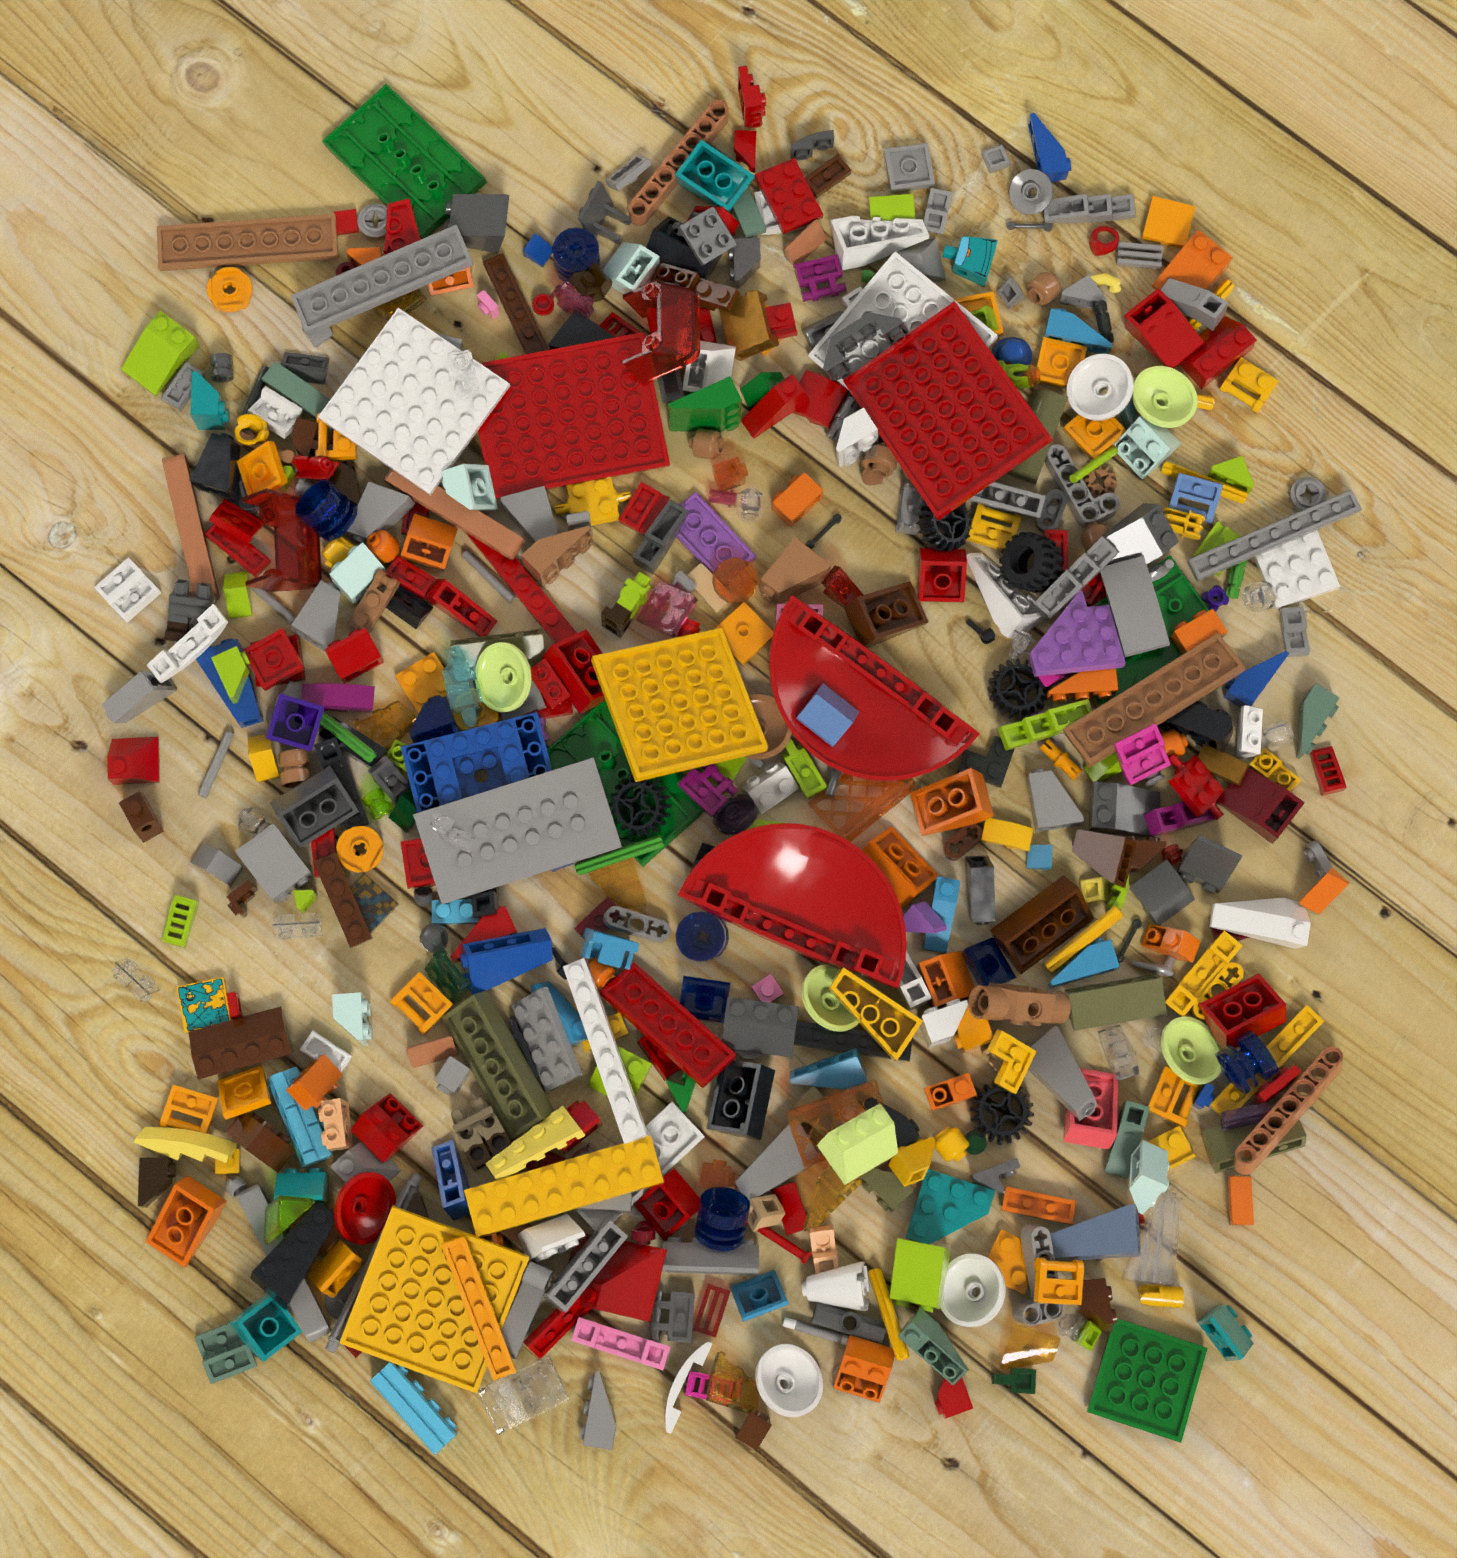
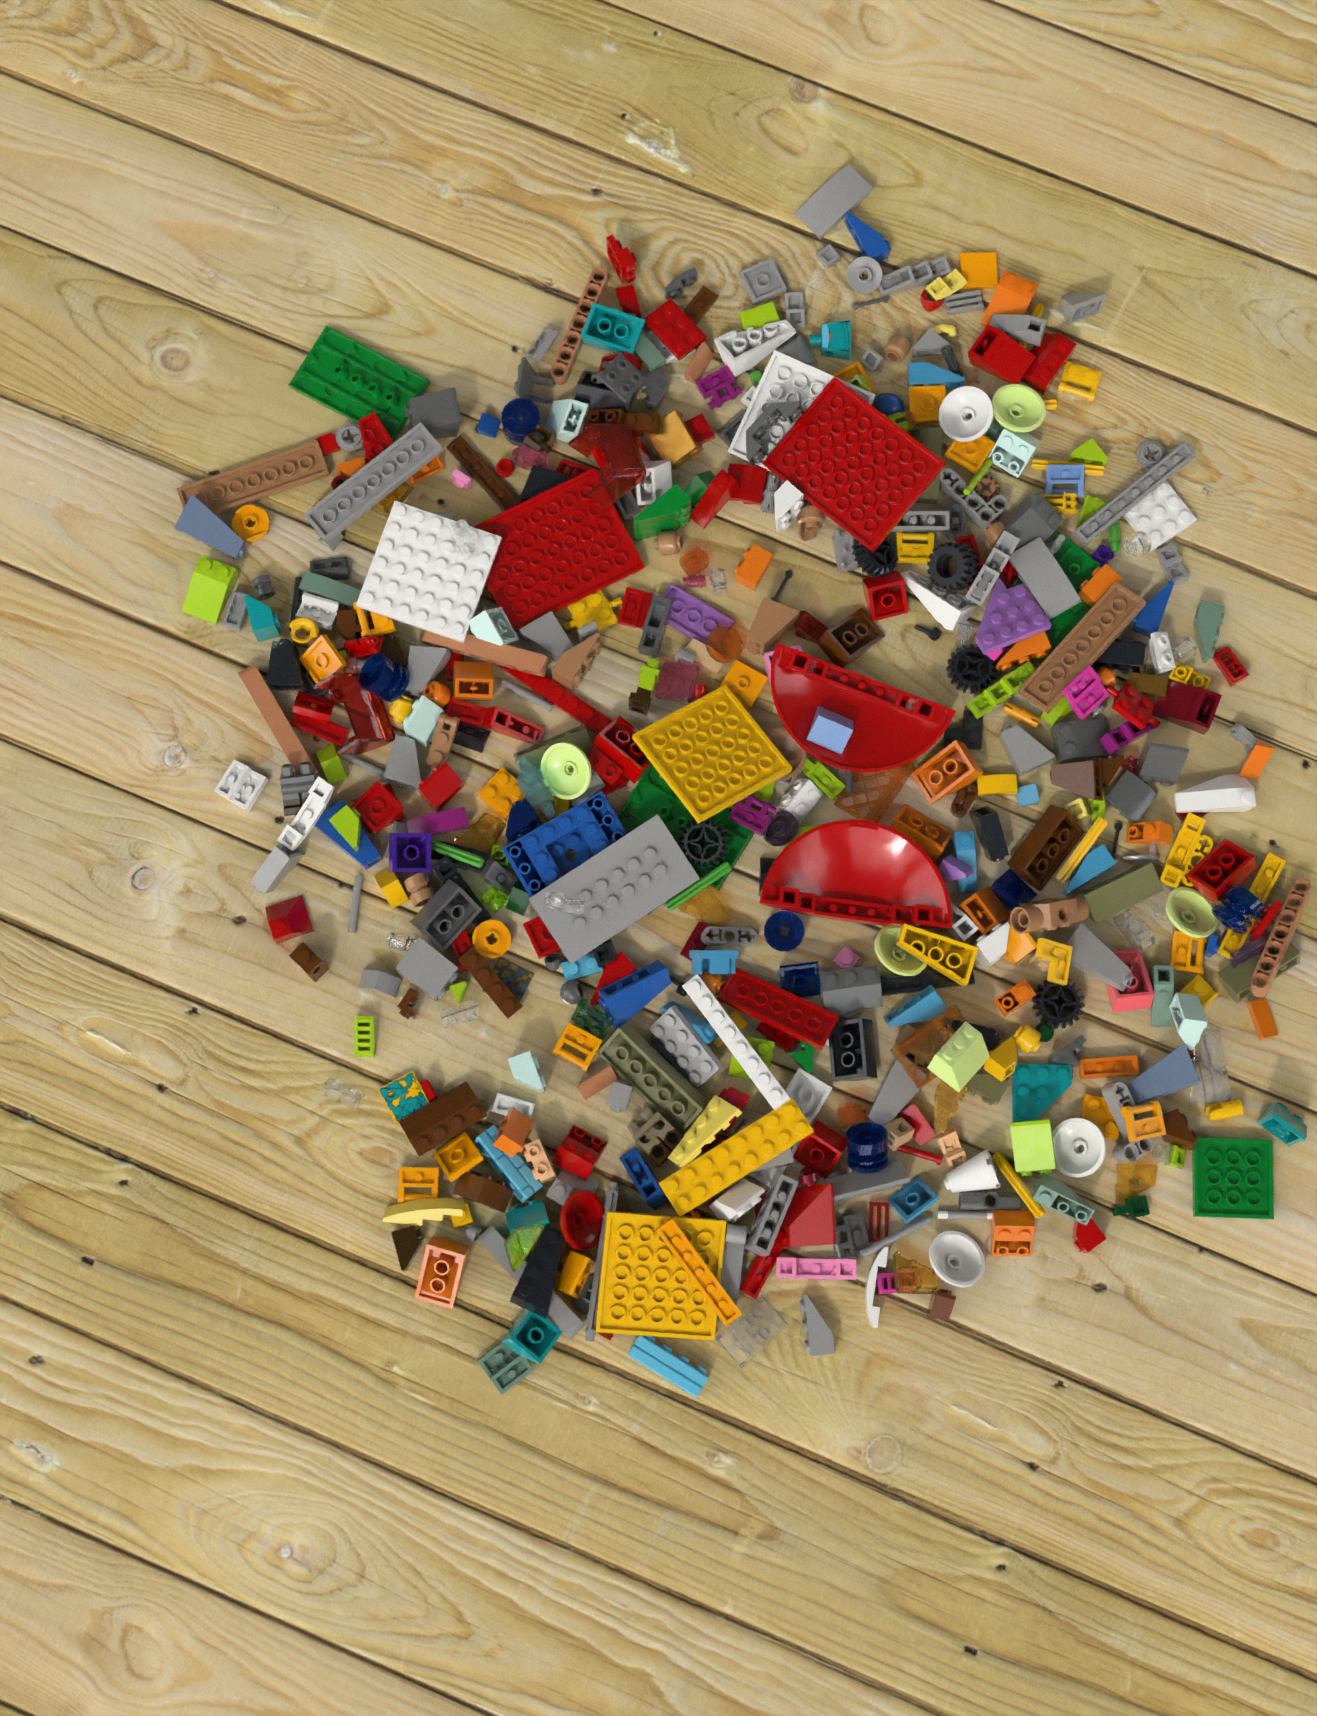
camera: 15 degrees left, 0 degrees up
(175, 279) = (208, 529): none -> sand blue slope
(726, 1333) = (895, 1236): none -> light grey bar
(1021, 94) = (834, 200): none -> light grey slope
(1120, 231) = (948, 285): none -> light yellow slope
(1277, 296) = (1081, 305): none -> light grey slope

